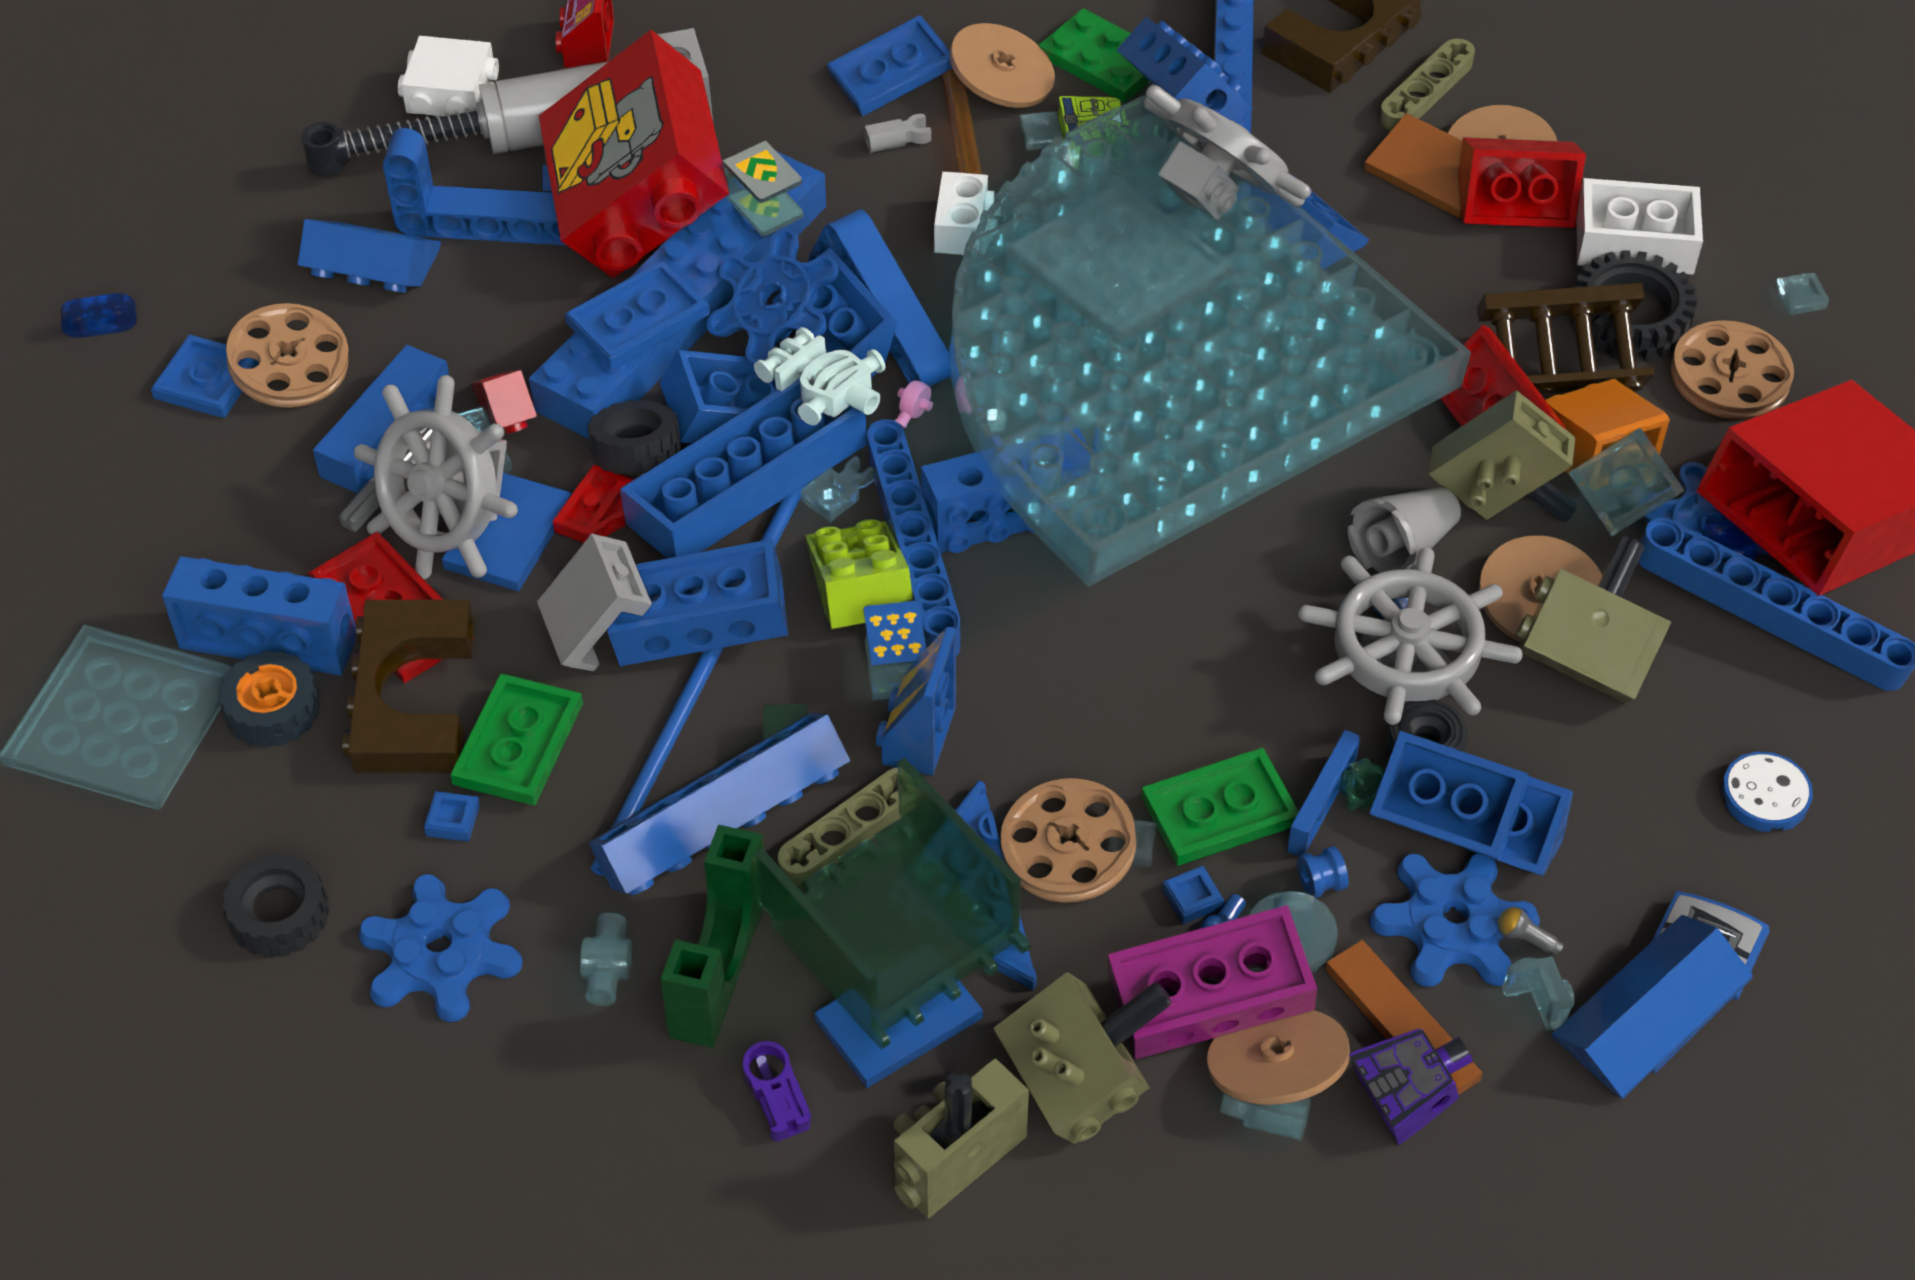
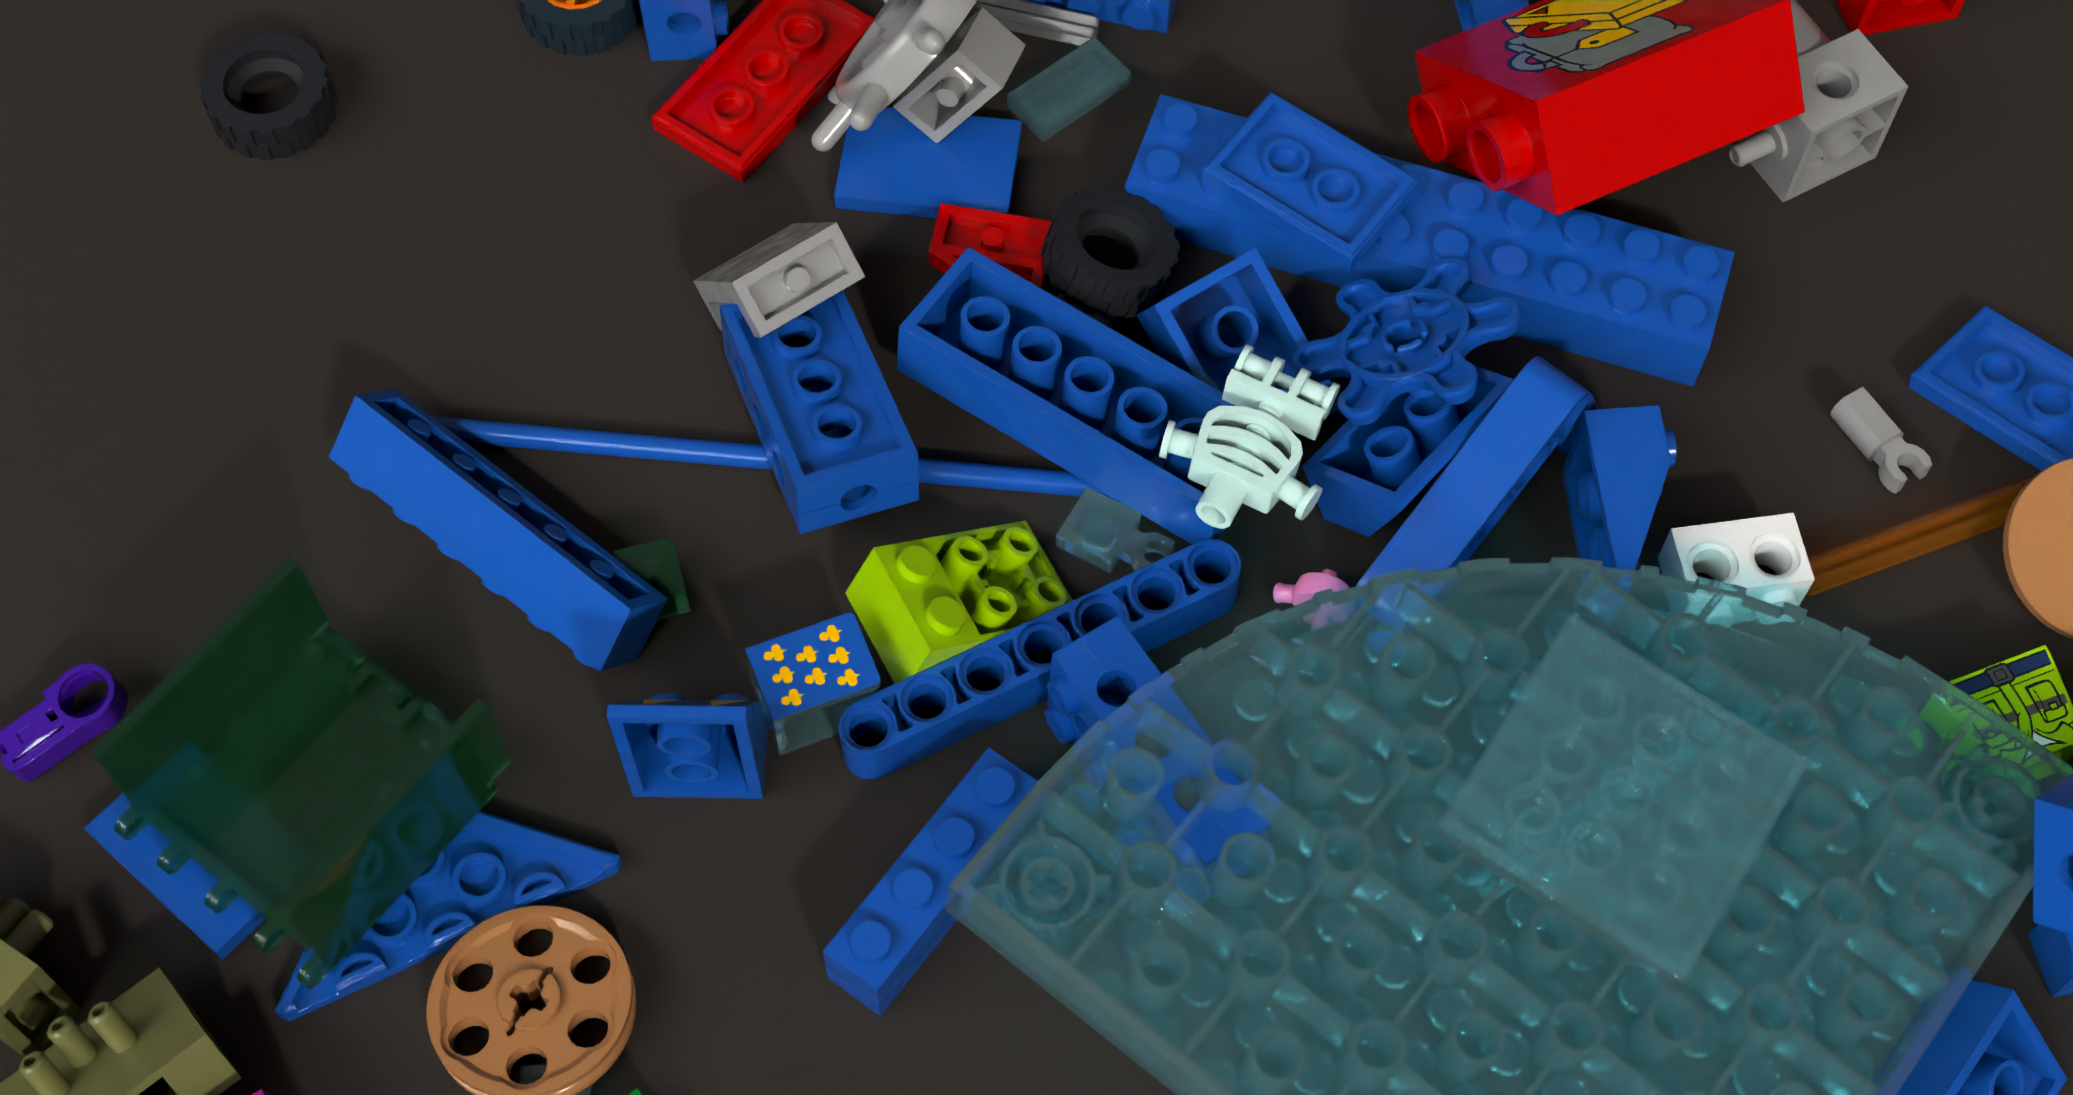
camera: 75 degrees right, 10 degrees up
(389, 638) = (543, 113): dark brown arch -> none
(442, 973) = (245, 319): blue plate -> none
(451, 816) = (445, 238): blue tile -> none
(505, 400) = (1131, 82): slope -> none
(517, 739) = (571, 271): green plate -> none
(606, 959) = (236, 467): clear light blue axle -> none
(703, 976) = (167, 587): dark green arch -> none
(759, 188) = (1604, 262): piece -> none
(845, 821) = (517, 699): olive beam -> none
(920, 239) = (1616, 481): none -> blue slope
(1040, 130) = (1985, 640): clear light blue tile -> none
(1049, 617) = (906, 909): none -> blue brick
(1220, 150) = (1883, 889): light grey piece -> none

